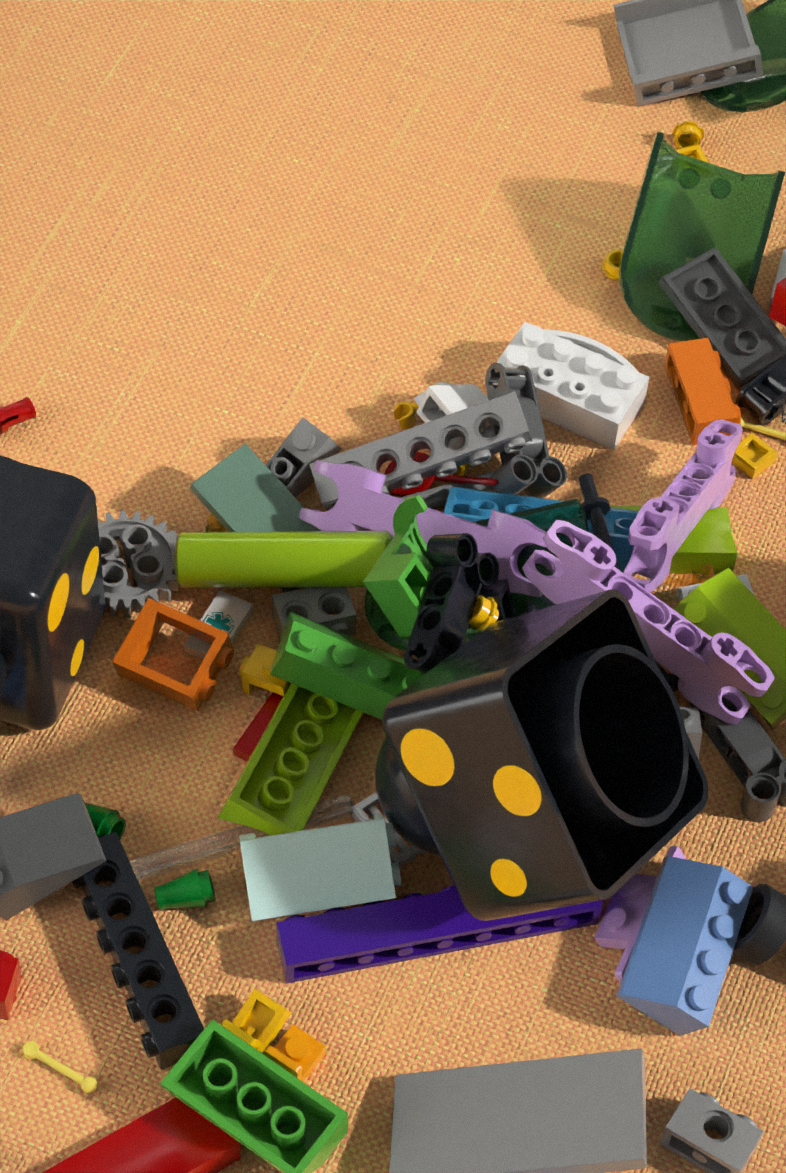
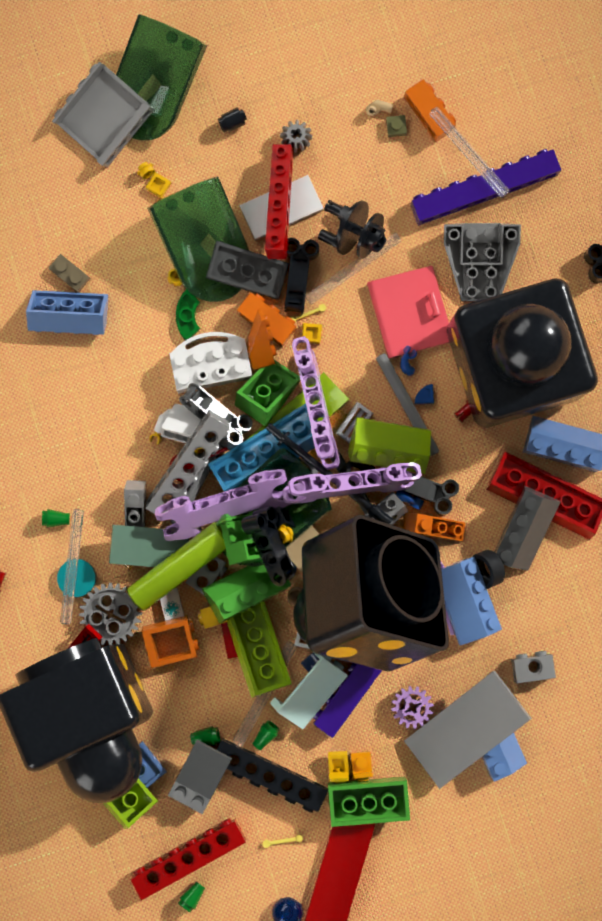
camera: 40 degrees left, 30 degrees up
(125, 487) = (84, 581): none -> teal tile
(154, 452) = (71, 567): none -> clear axle
(167, 399) = (54, 518): none -> green cone
(427, 202) = (67, 312): none -> medium blue slope
(436, 1030) = (416, 714): none -> lavender gear
(475, 170) = (69, 273): none -> dark tan plate
(594, 312) = (185, 315): none -> green tile
(621, 463) = (266, 392): none -> bright green slope
(661, 403) = (258, 343): none -> orange slope
(721, 763) = (406, 497): none -> blue arm
(730, 822) = (434, 526): none -> orange slope

